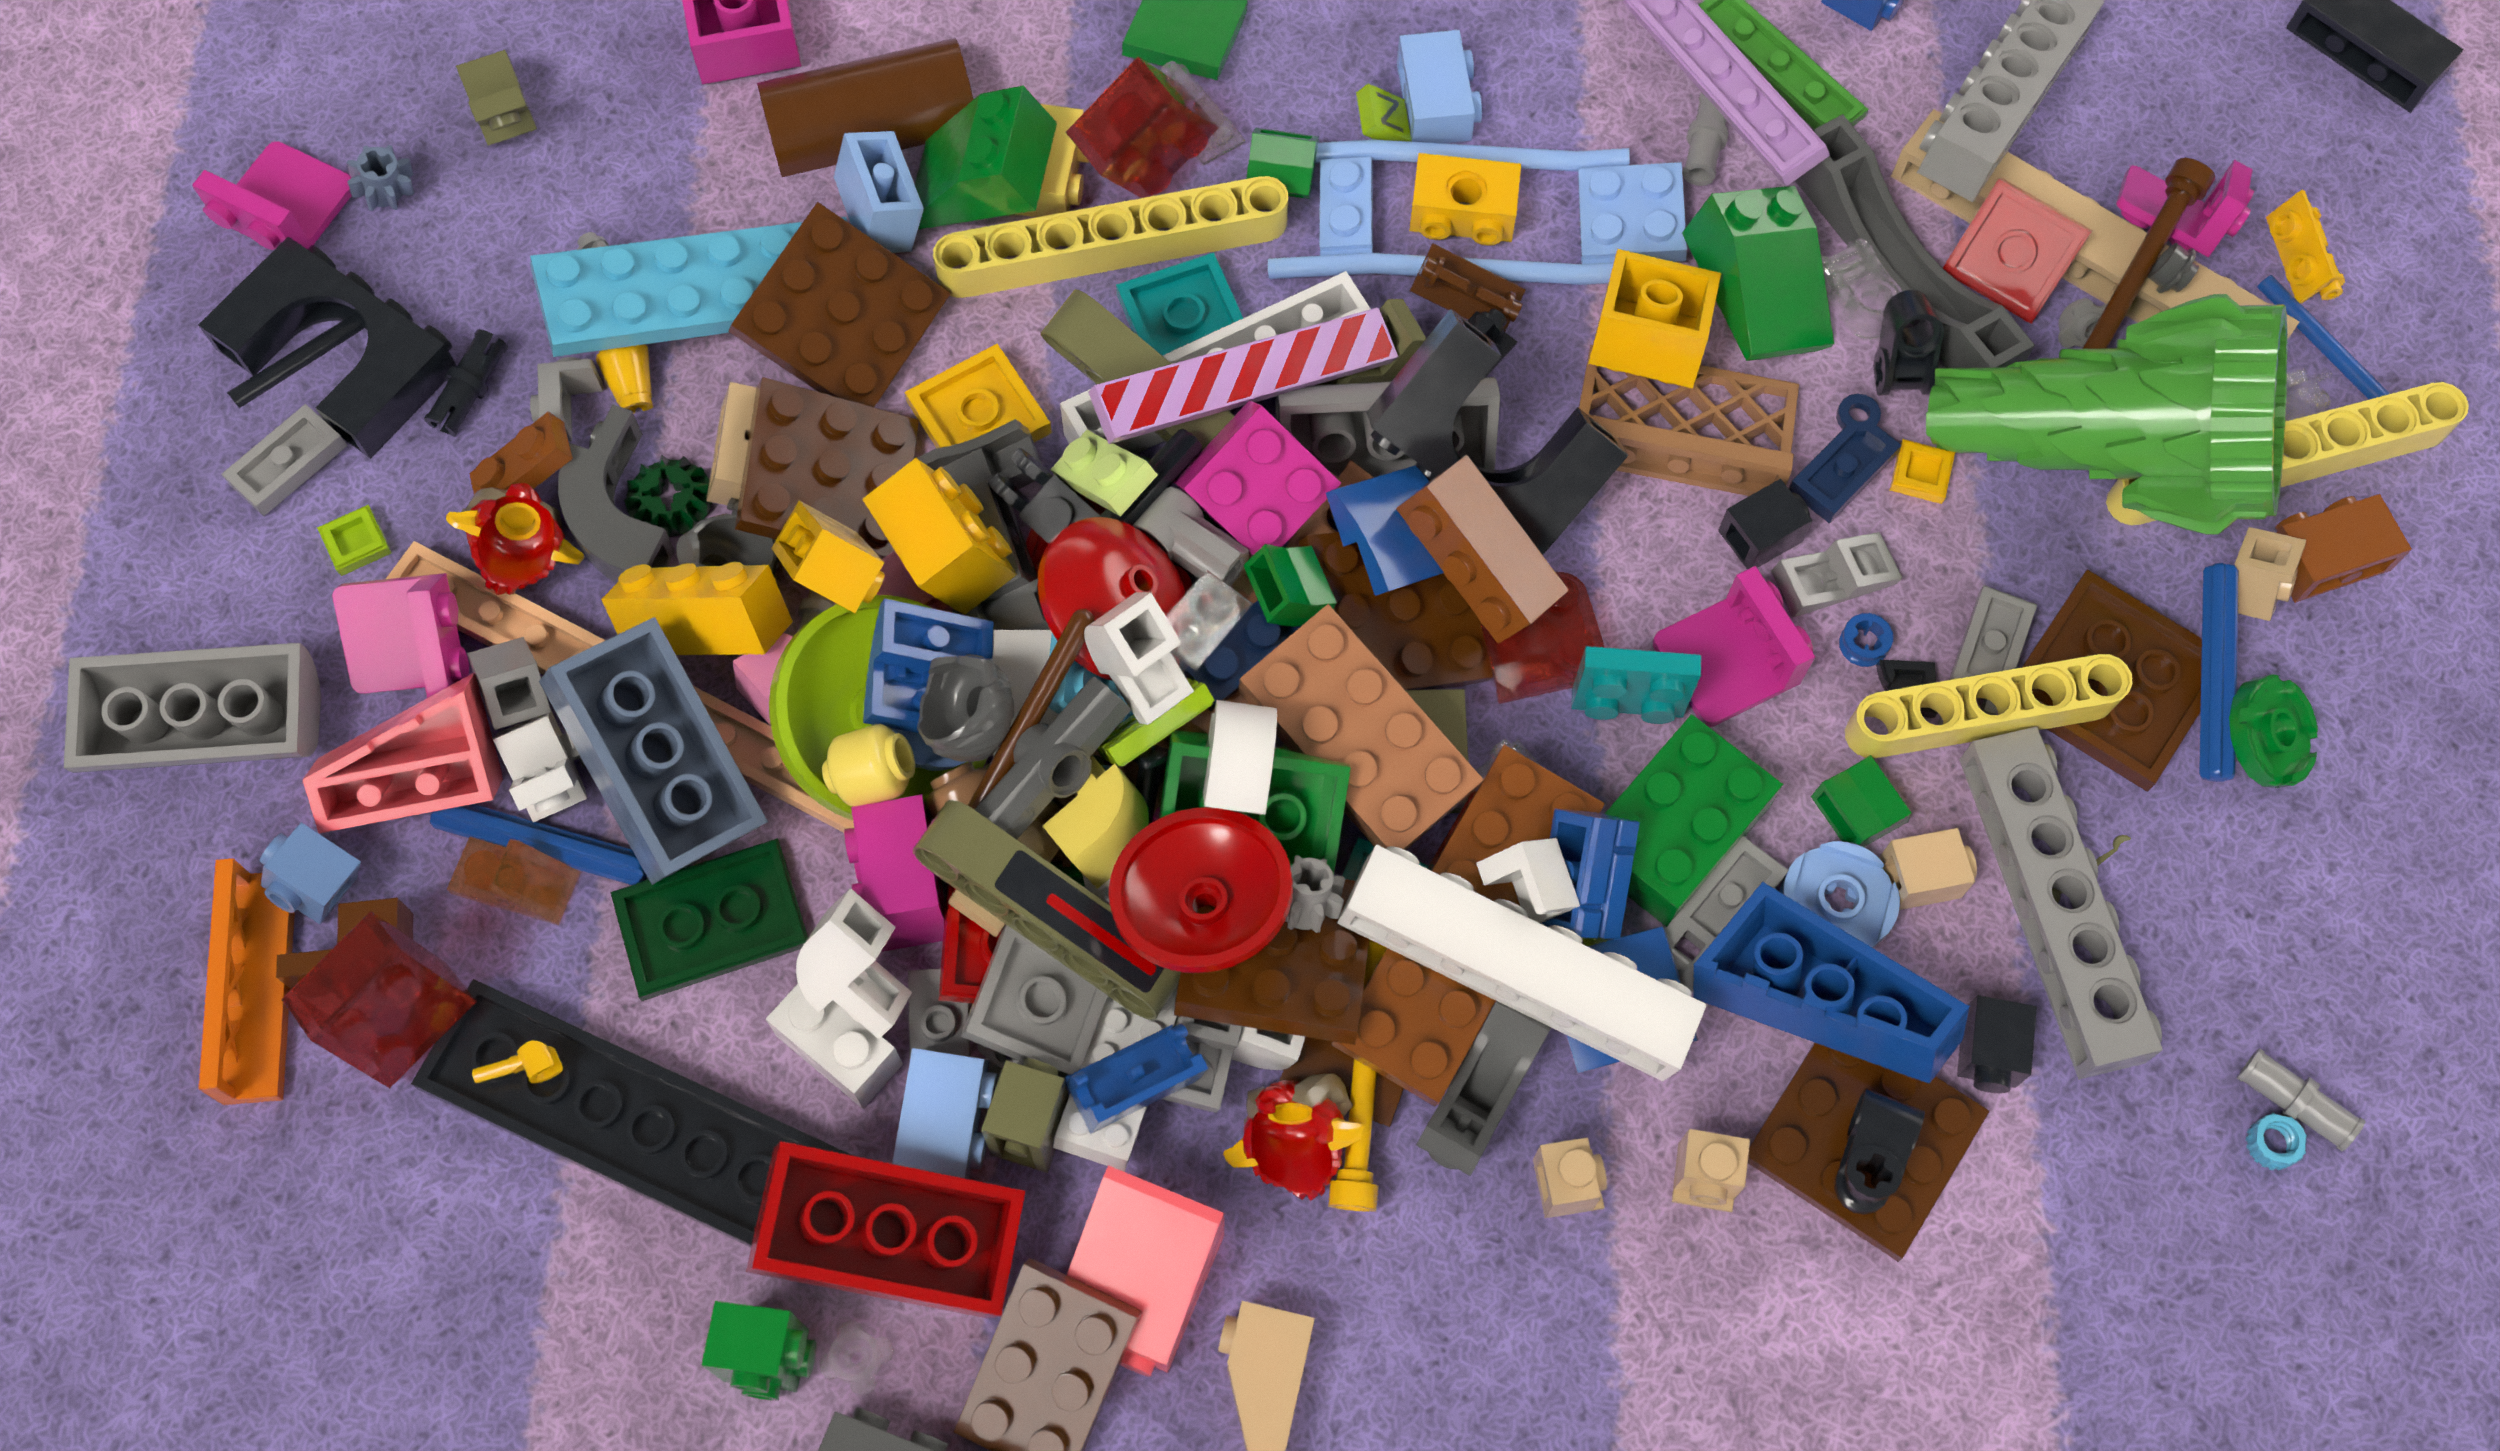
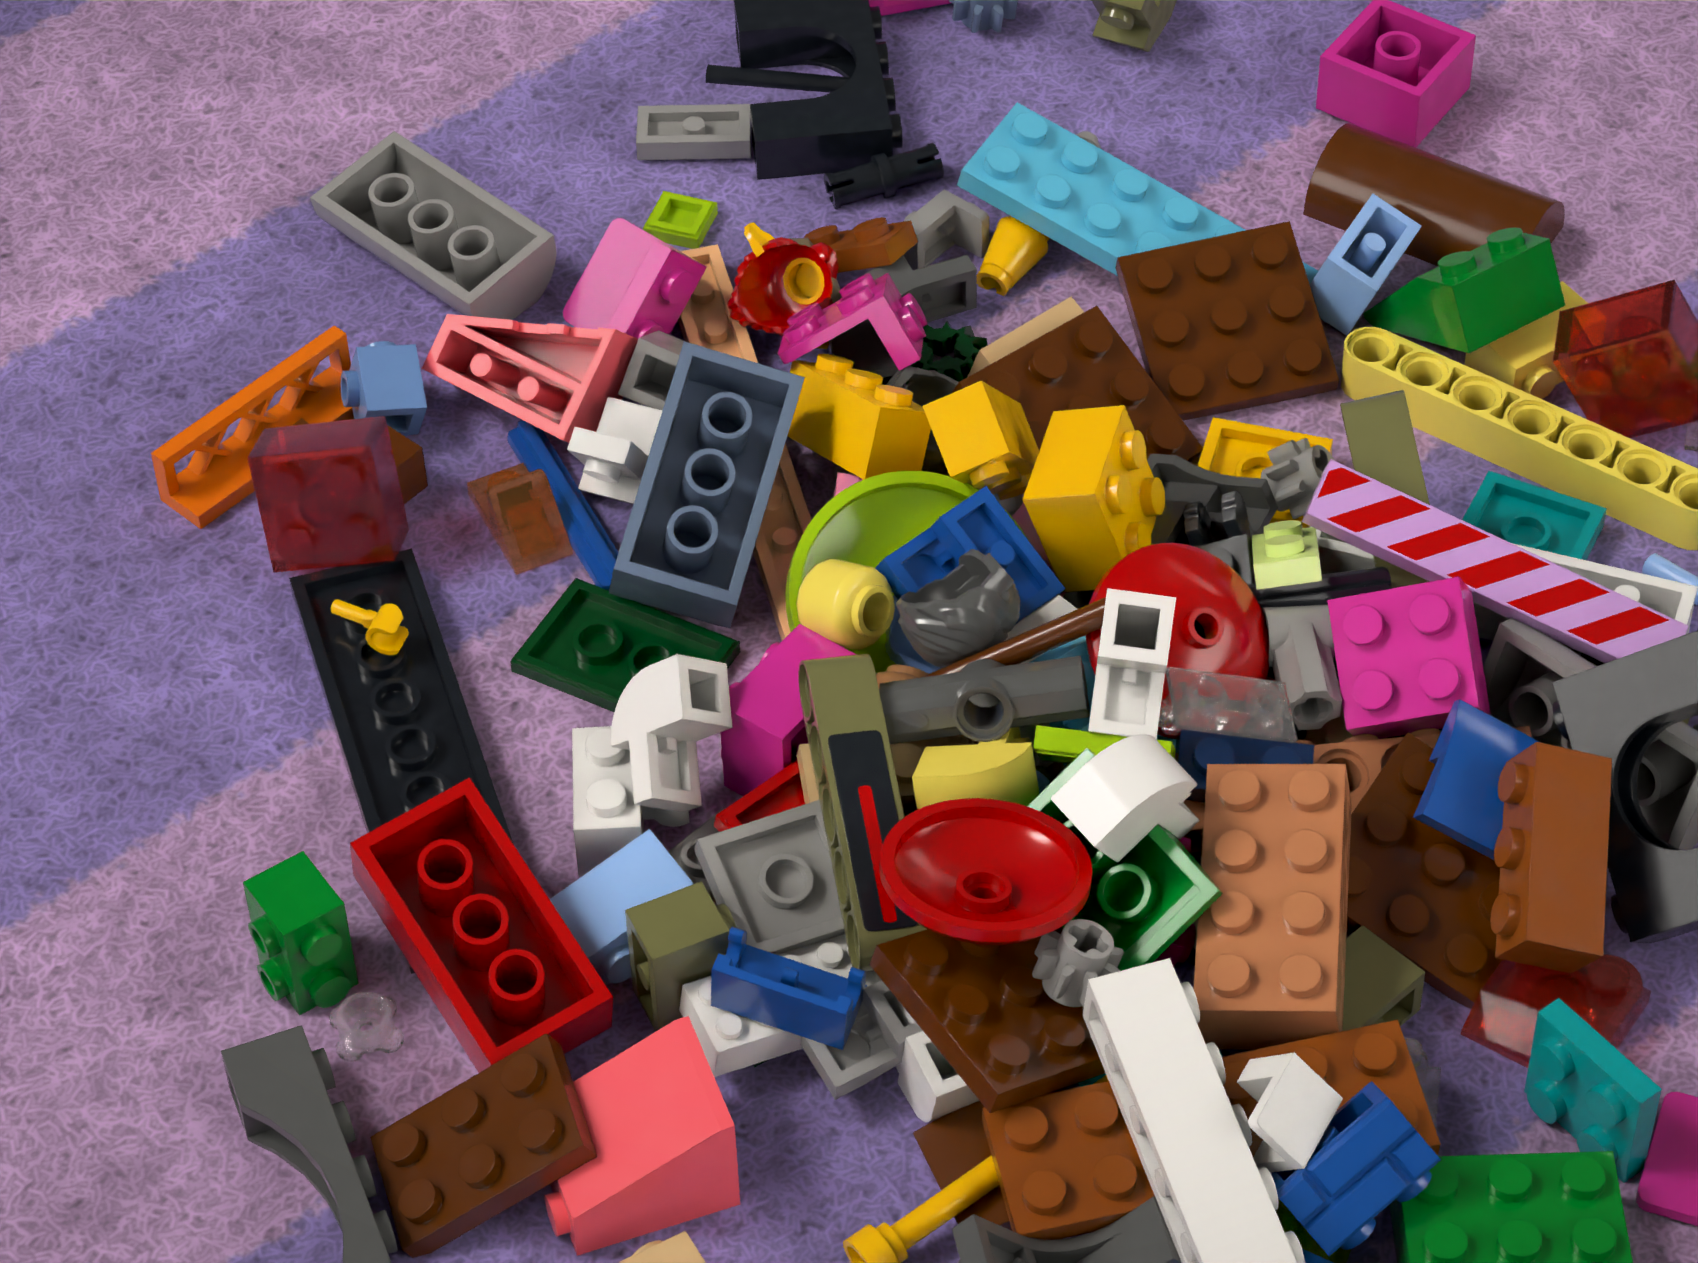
camera: 50 degrees right, 20 degrees down
(604, 529) = (895, 319): none -> dark pink bracket
(1025, 395) = (1295, 474): none -> light grey gear
(1288, 584) = (1348, 736): green piece -> none
(1296, 1133) = (879, 1164): red hair -> none

